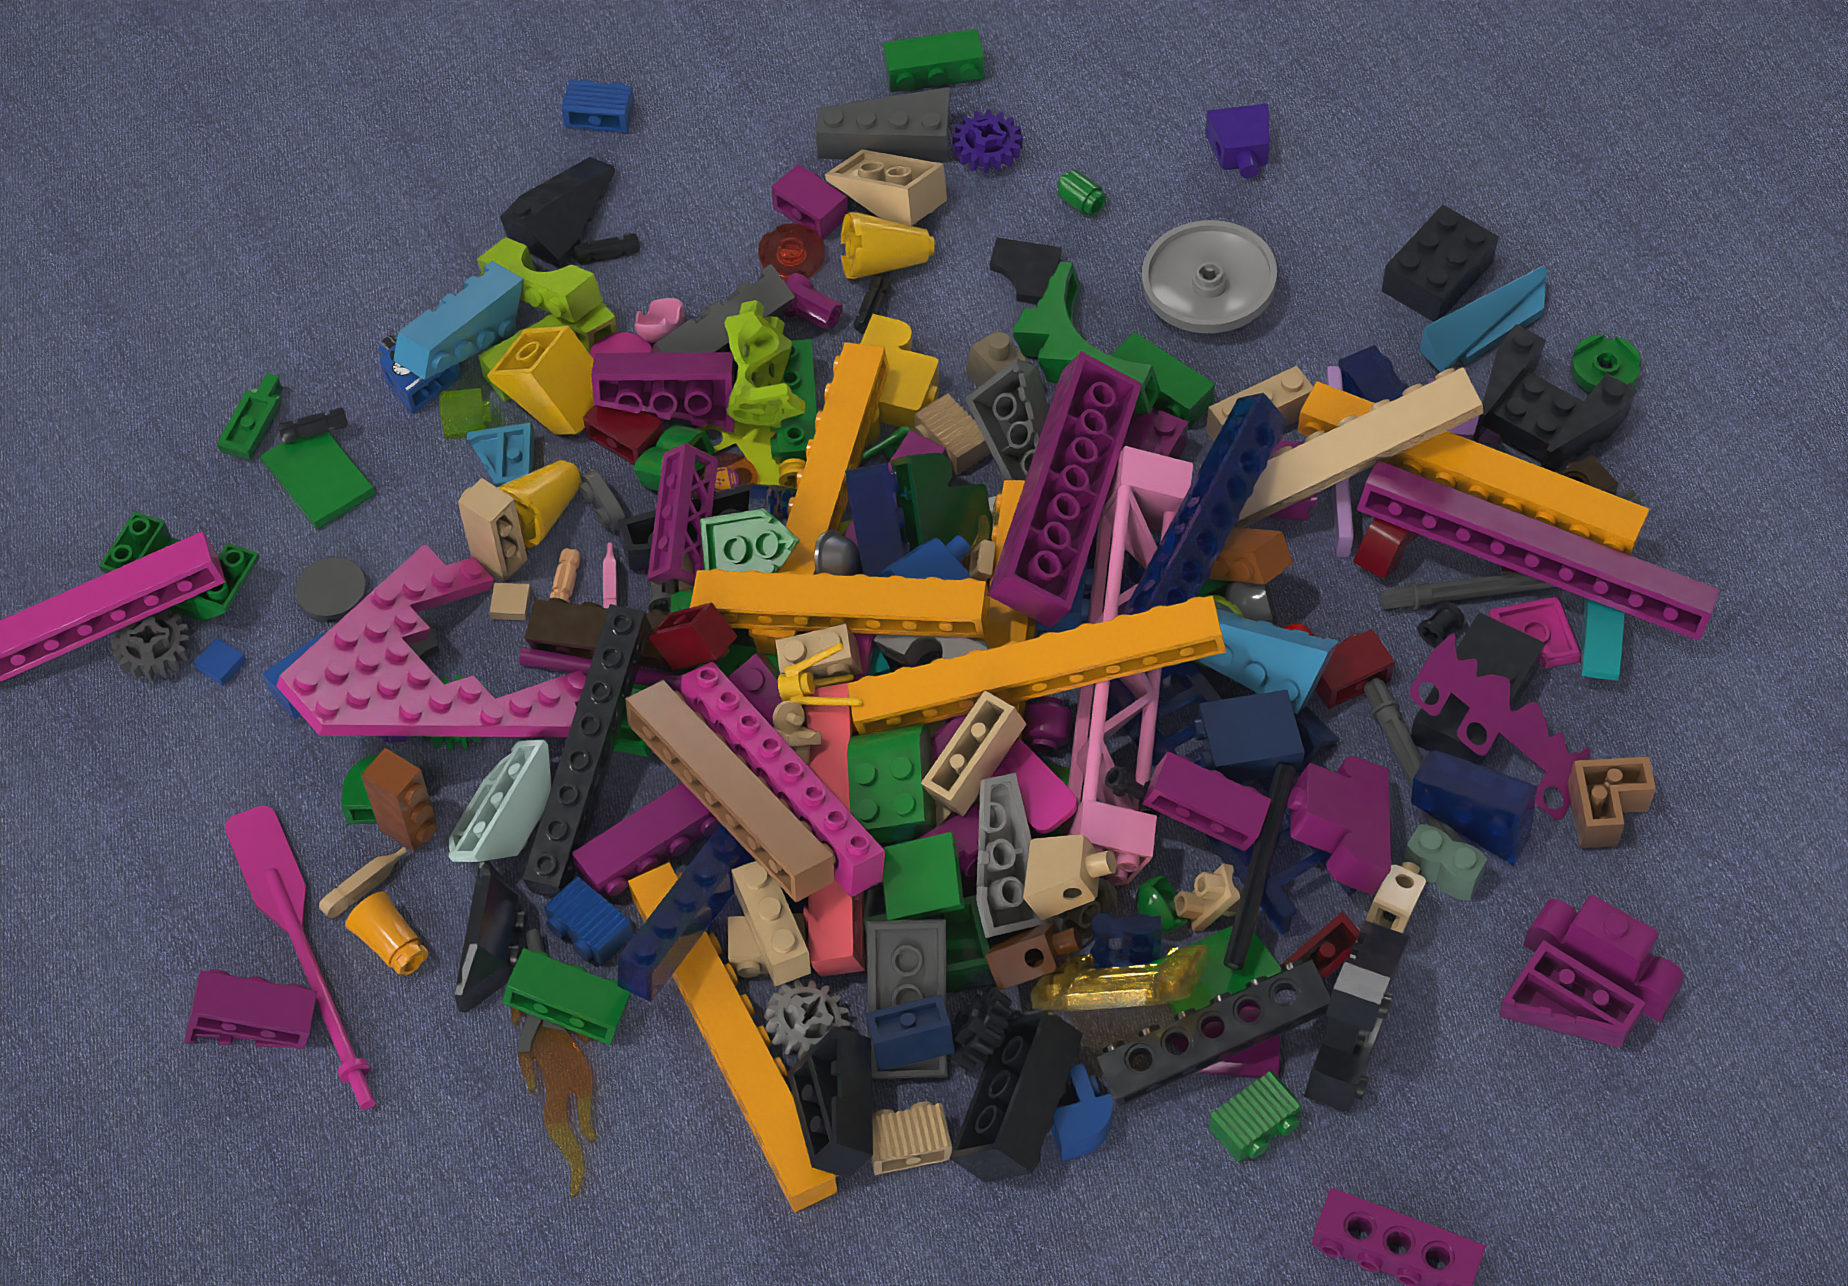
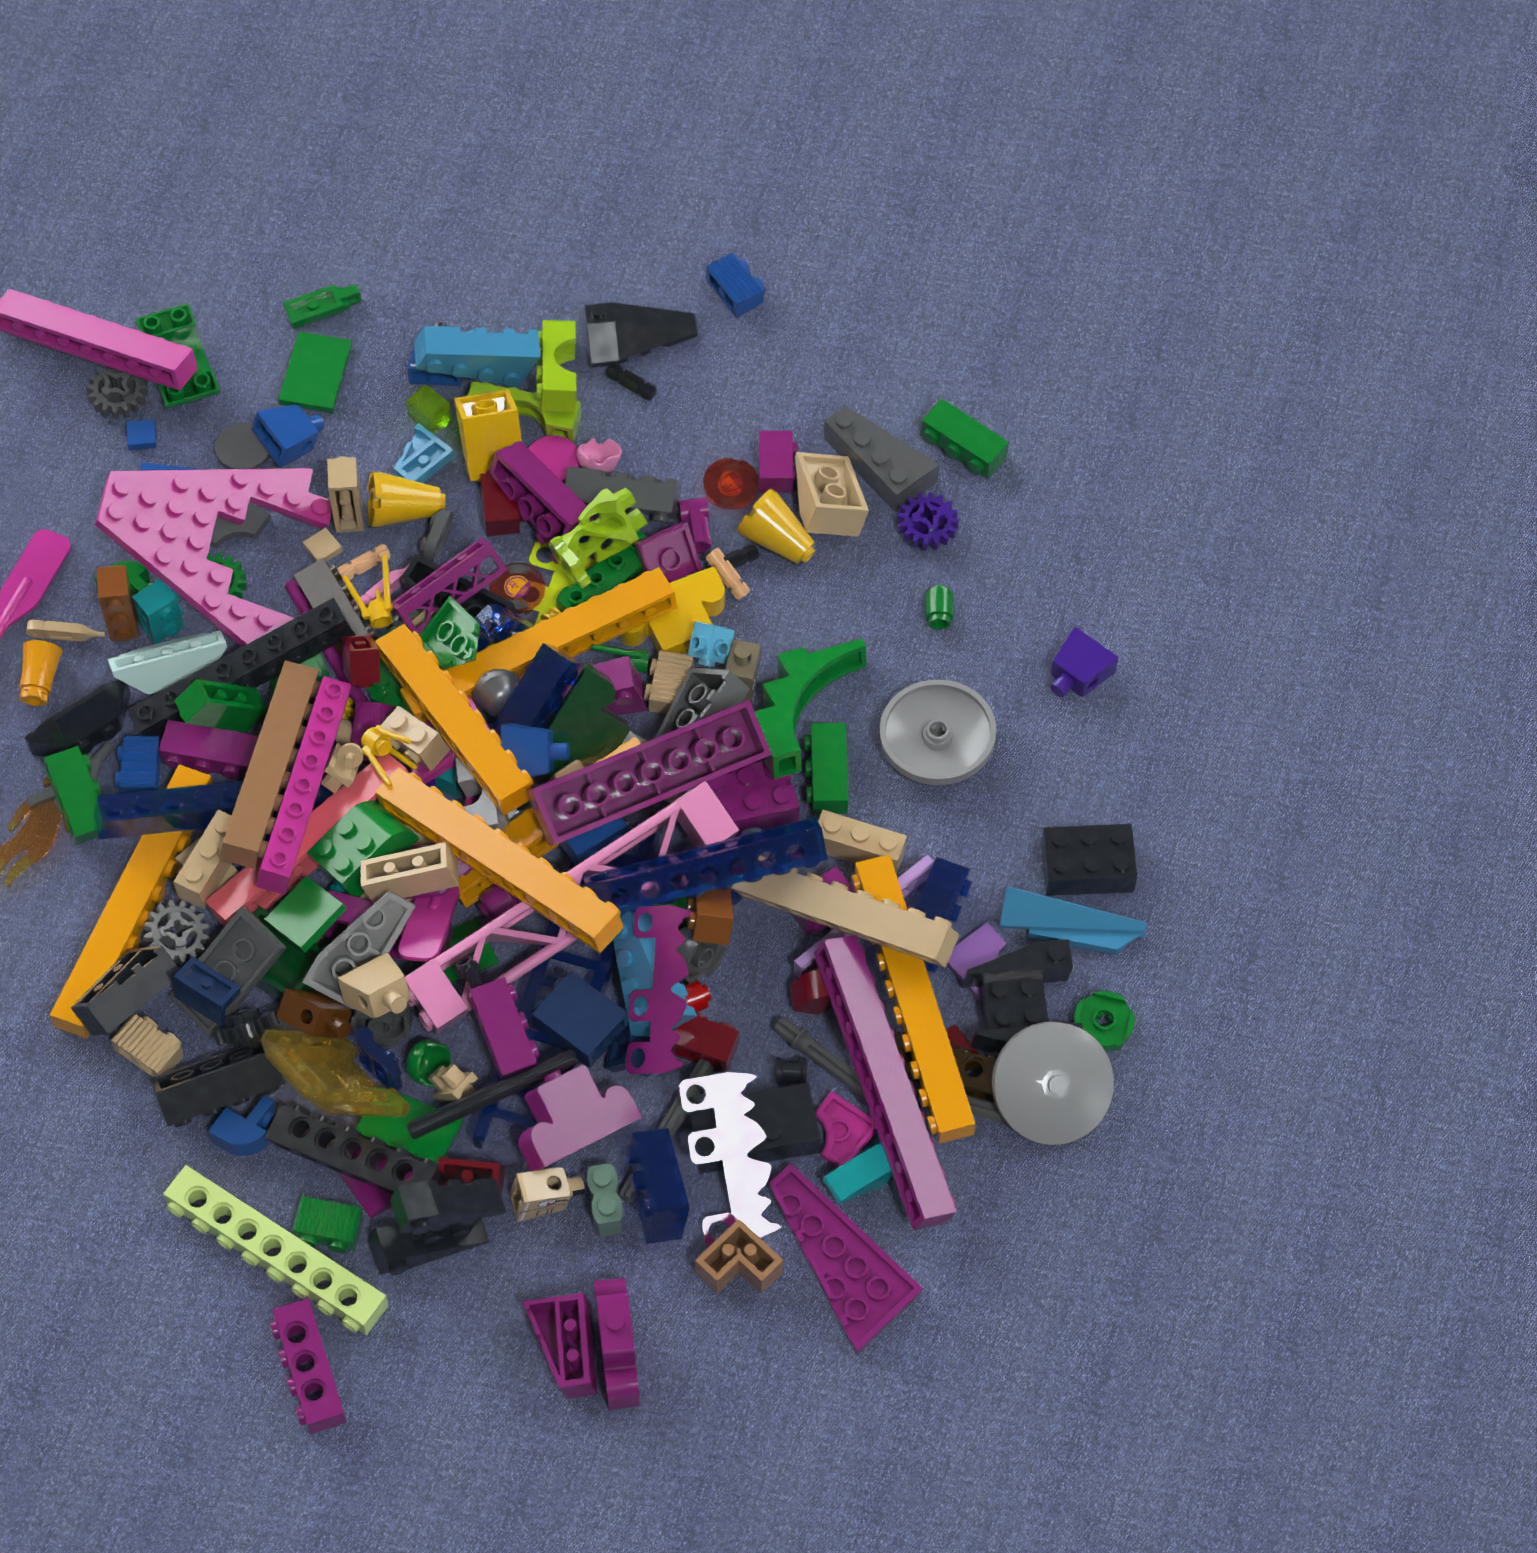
camera: 45 degrees right, 5 degrees up
(313, 425) = (342, 339): black axle -> none
(360, 538) = (287, 432): none -> blue torso
(443, 775) = (158, 611): none -> teal brick
(608, 794) = (220, 705): none -> green brick
(644, 593) = (378, 609): none -> yellow plant
(650, 462) = (510, 544): green brick -> none
(823, 335) = (670, 551): none -> magenta plate
(865, 307) = (728, 573): none -> light nougat axle
(955, 367) = (710, 643): none -> medium azure brick
(1026, 266) = (850, 621): black tile -> none
(1255, 1167) = (193, 1186): none -> yellowish green brick
(1313, 652) = (663, 1005): none -> magenta piece
(1645, 435) = (1052, 1083): none -> light grey dish
(1690, 721) = (853, 1271): none -> magenta wing

